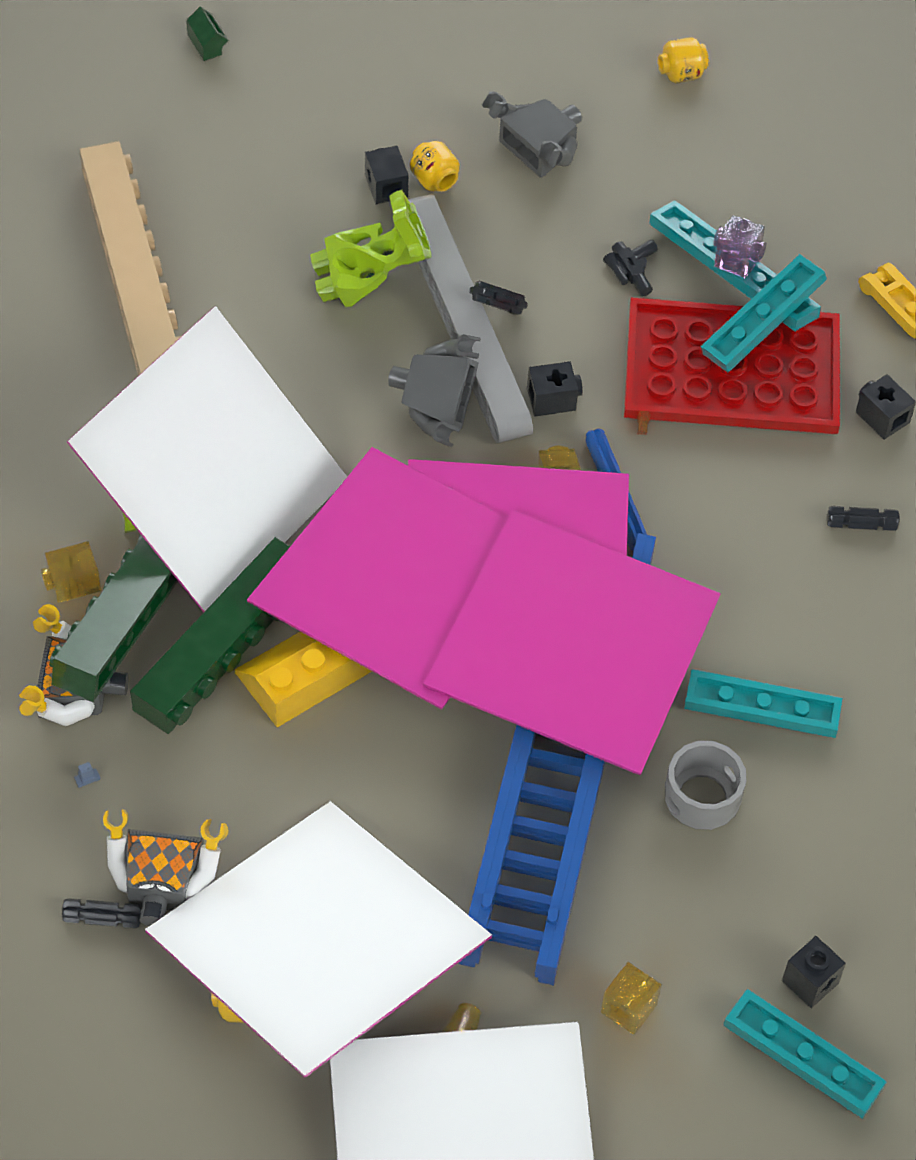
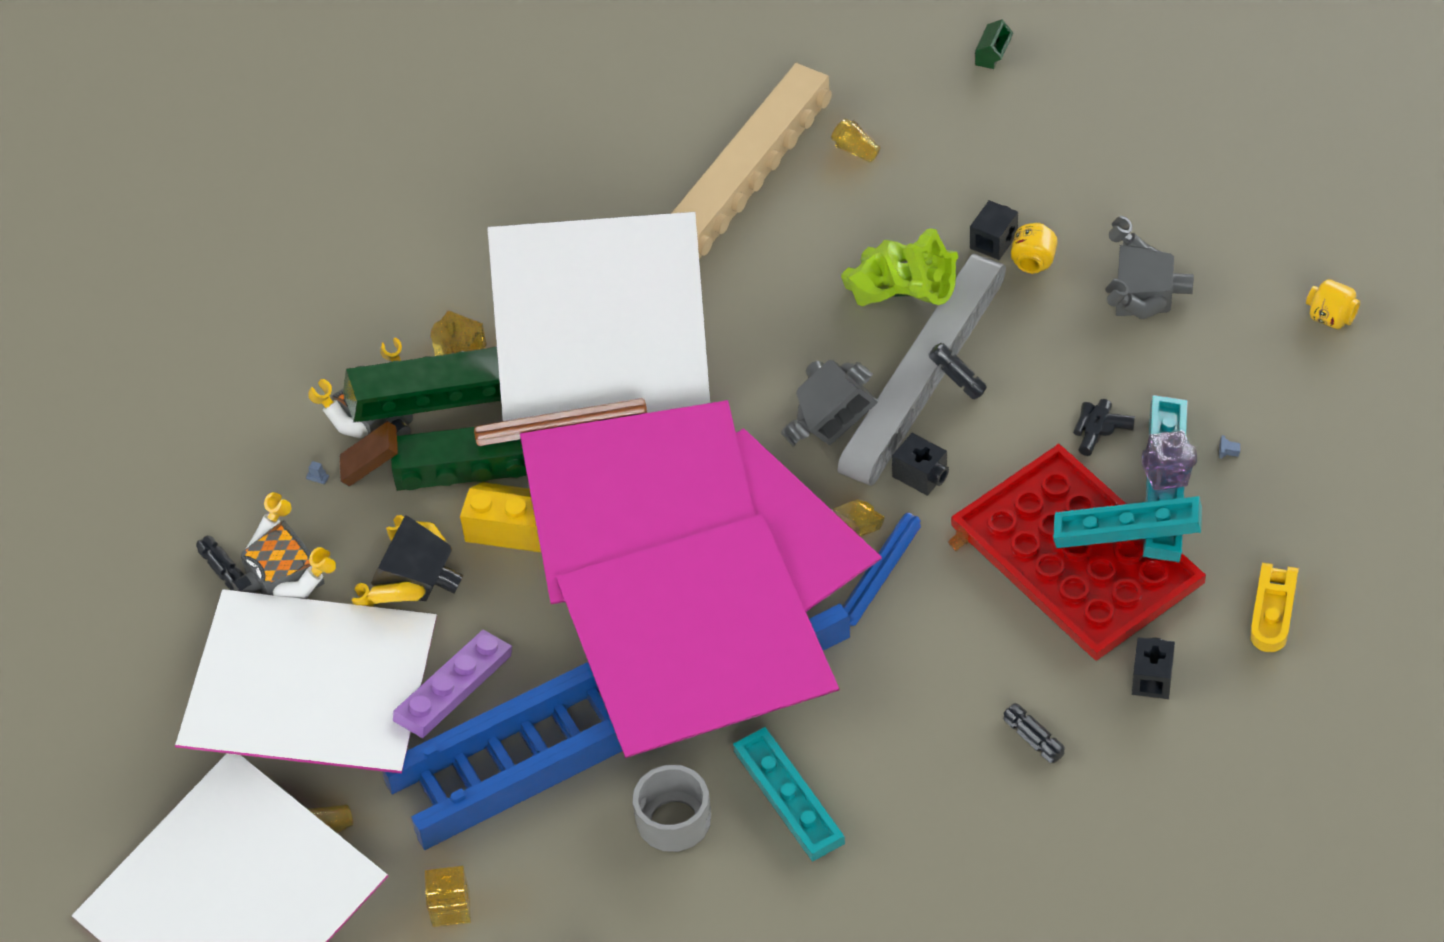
camera: 55 degrees right, 5 degrees down
(124, 720) = (368, 454): none -> reddish brown tile
(192, 181) = (854, 140): none -> clear yellow cone
(259, 567) = (511, 429): none -> axle
(273, 775) = (410, 565): none -> black torso
(428, 839) = (452, 683): none -> medium lavender plate
(739, 211) = (1228, 448): none -> sand blue piece

